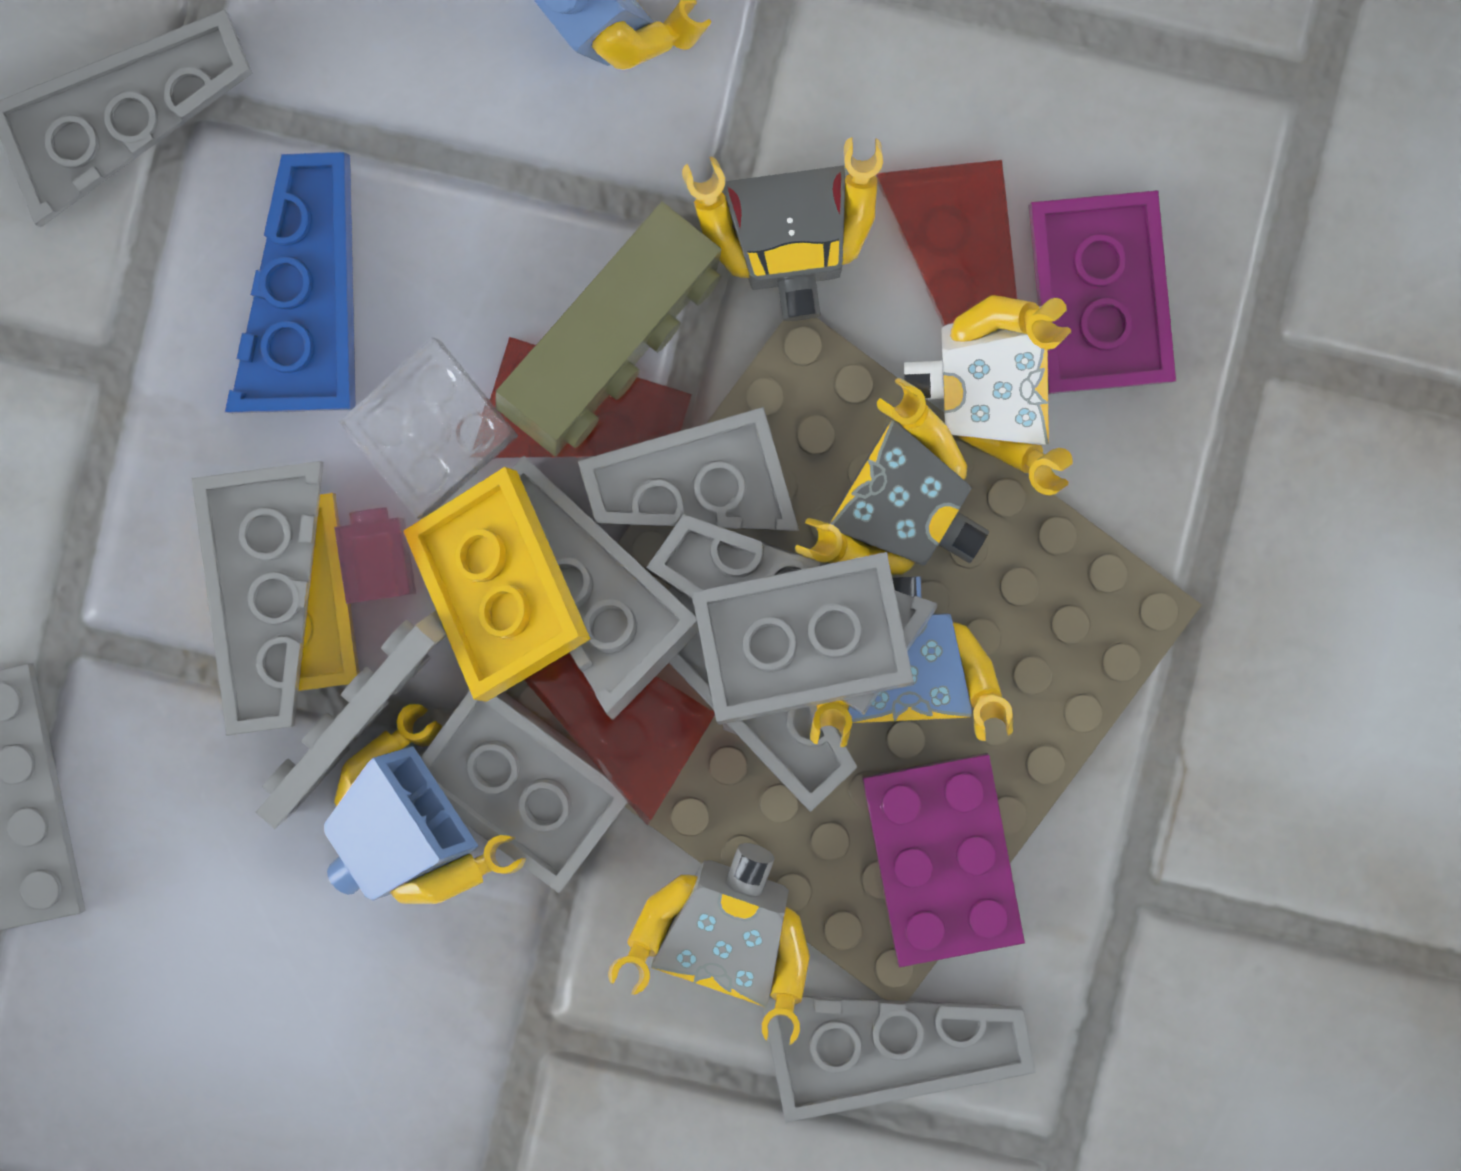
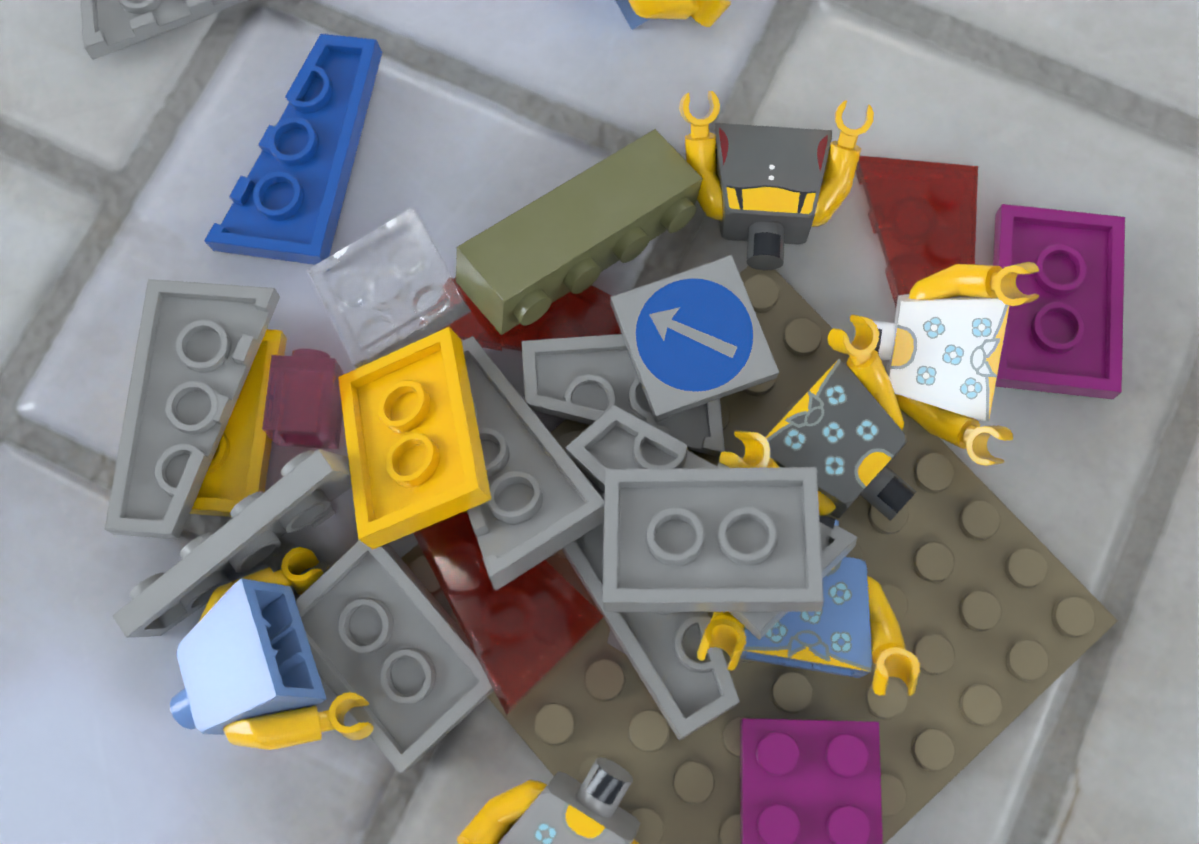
camera: 10 degrees right, 15 degrees down
(746, 425) = (694, 337): none -> tile

